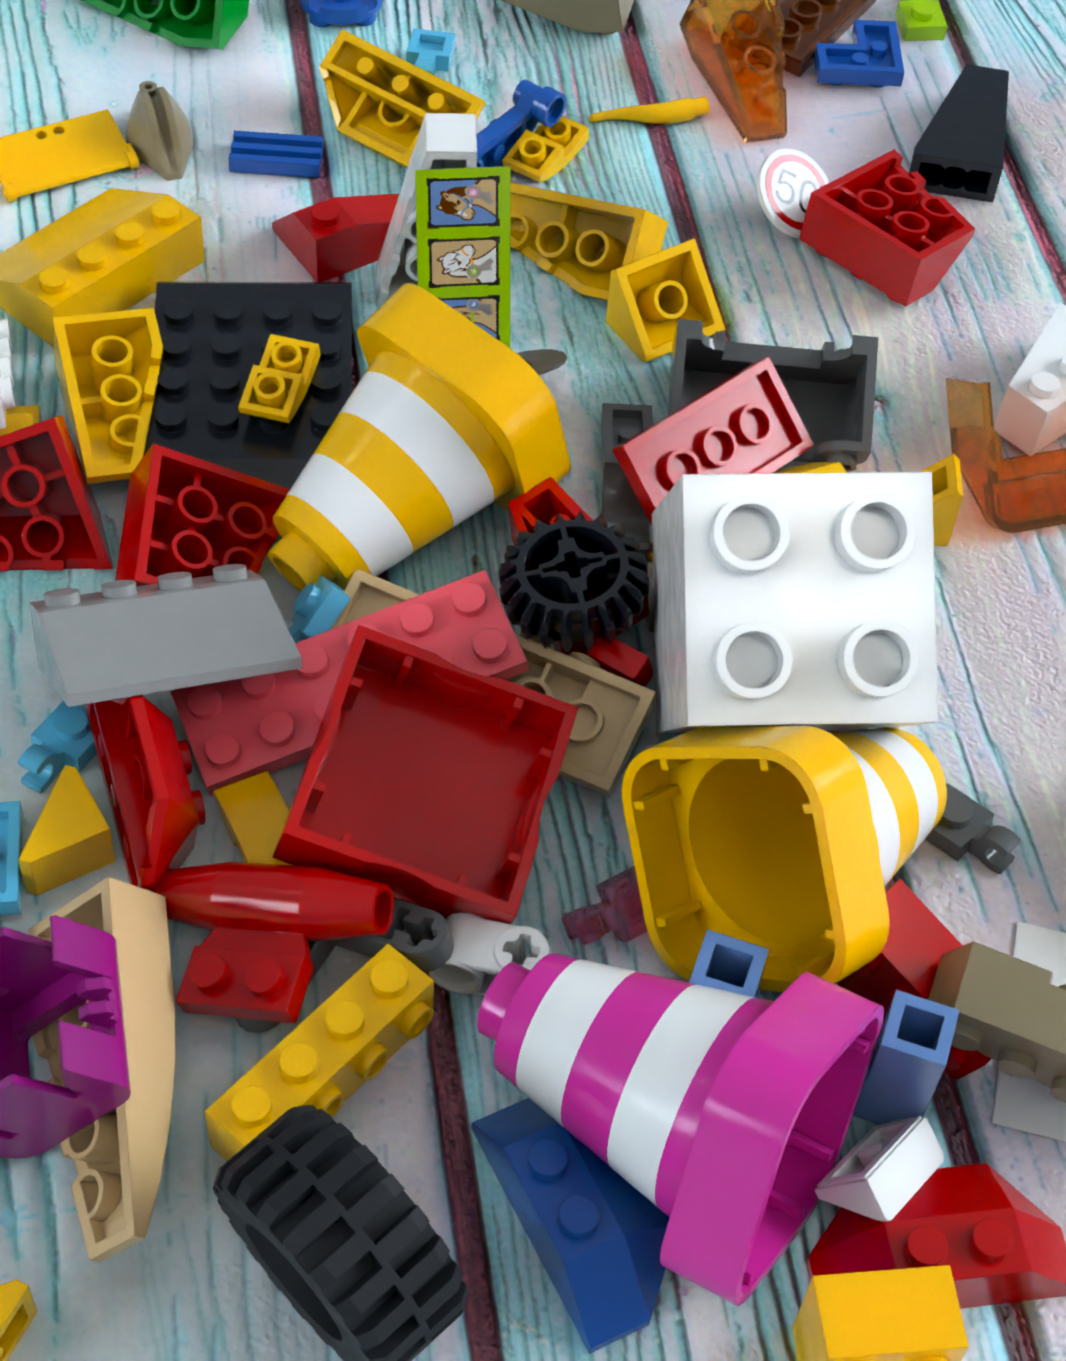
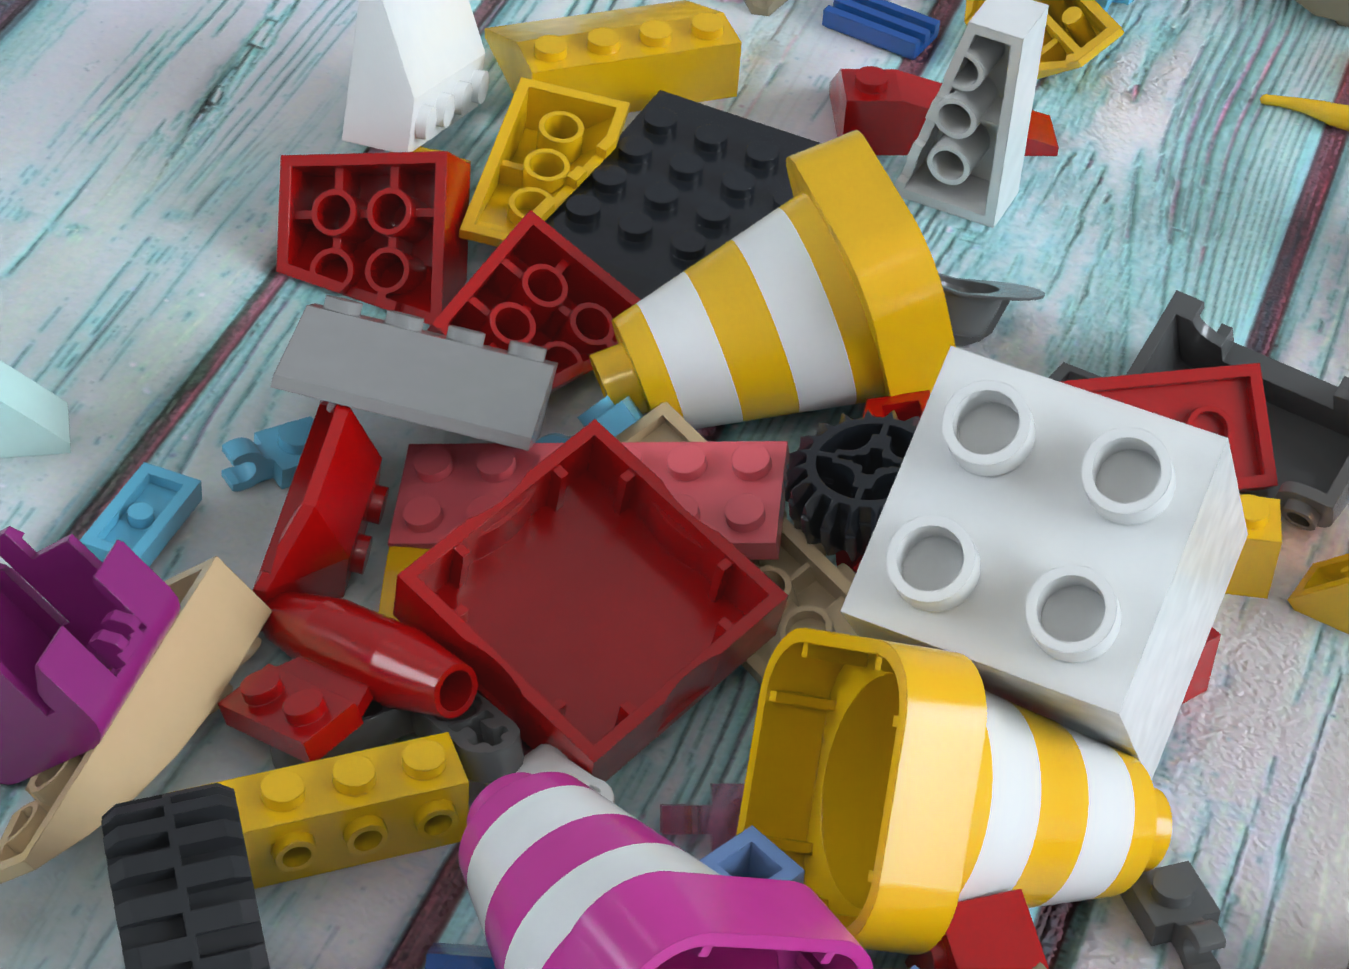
camera: 30 degrees right, 10 degrees down
(67, 838) = (220, 522): yellow slope -> none
(281, 379) = (715, 211): yellow slope -> none
(466, 242) = (981, 158): sticker -> none
(531, 106) = (1130, 82): blue plate -> none
(547, 149) = (1188, 112): yellow slope -> none
(581, 236) = (1151, 202): yellow wedge -> none
(655, 293) = (1212, 265): yellow slope -> none

